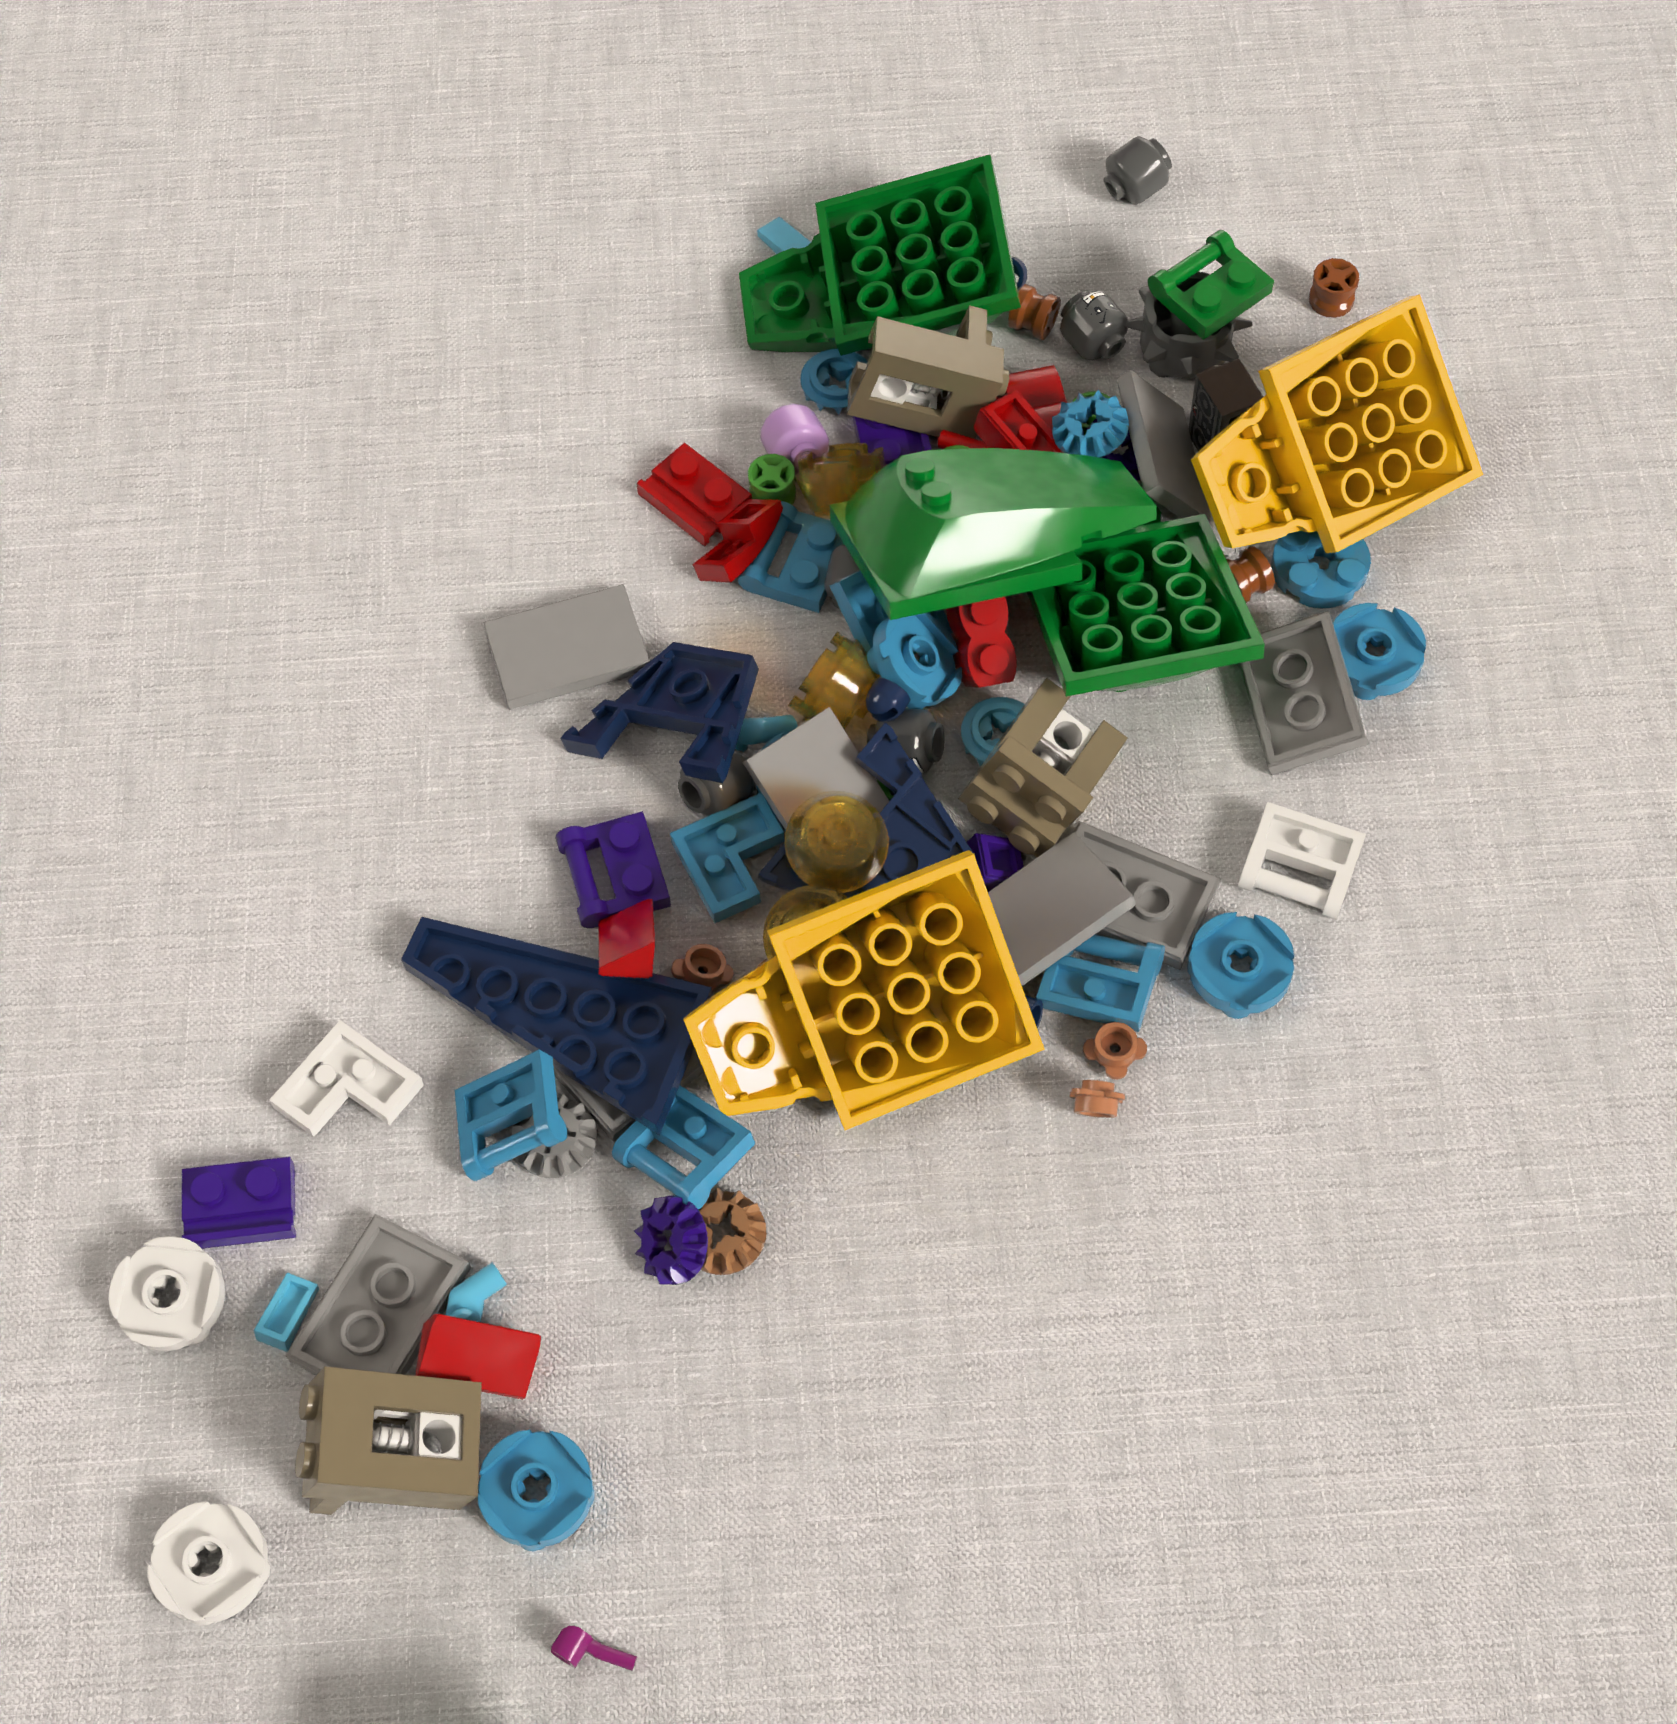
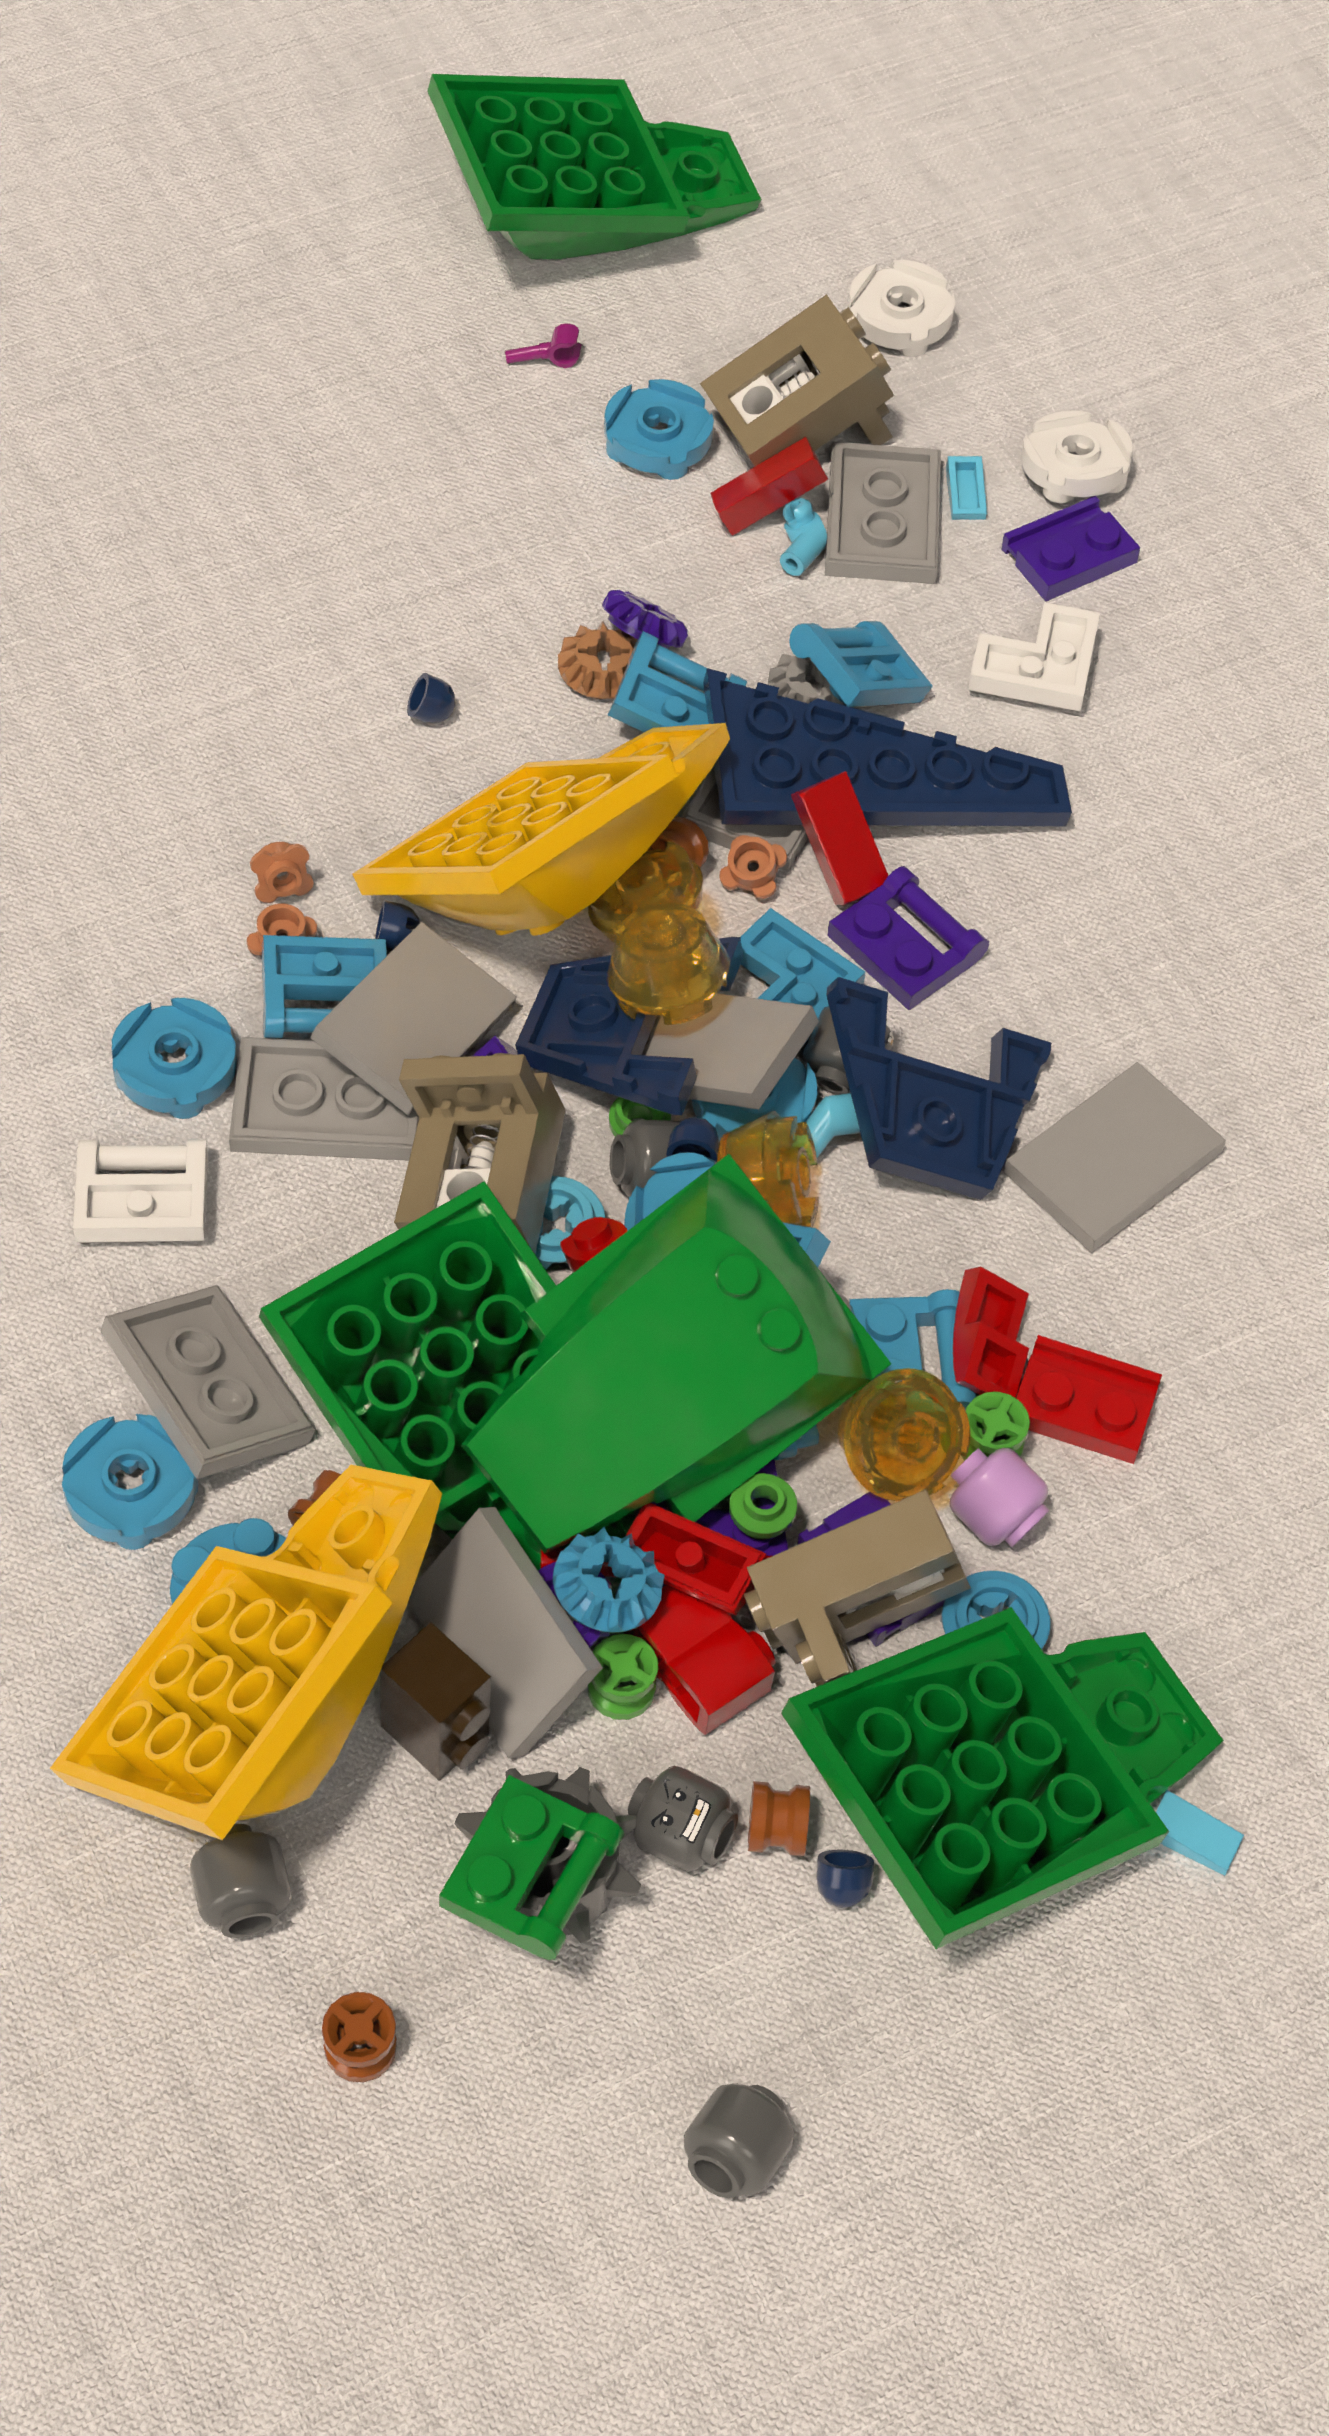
camera: 150 degrees right, 5 degrees down
(898, 1238) = (431, 699): none -> dark blue hinge

